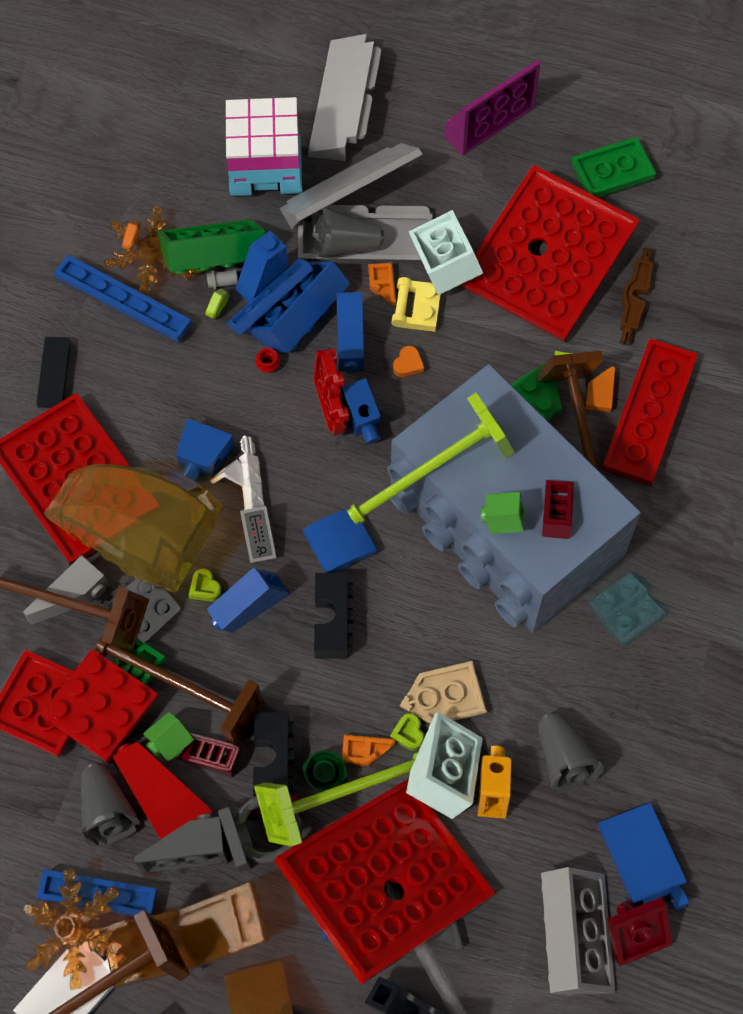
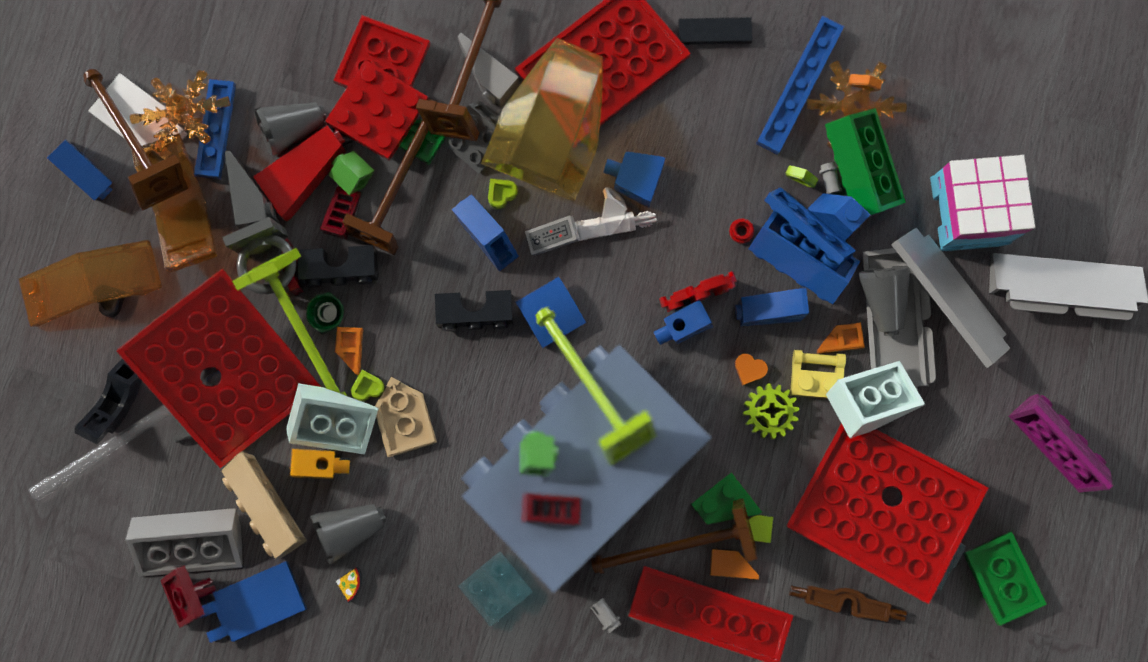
camera: 85 degrees right, 15 degrees up
(464, 343) = (770, 400): none -> lime gear
(539, 841) = (263, 505): none -> tan slope
(622, 755) = (350, 584): none -> tile
(654, 503) = (605, 615): none -> light grey pin

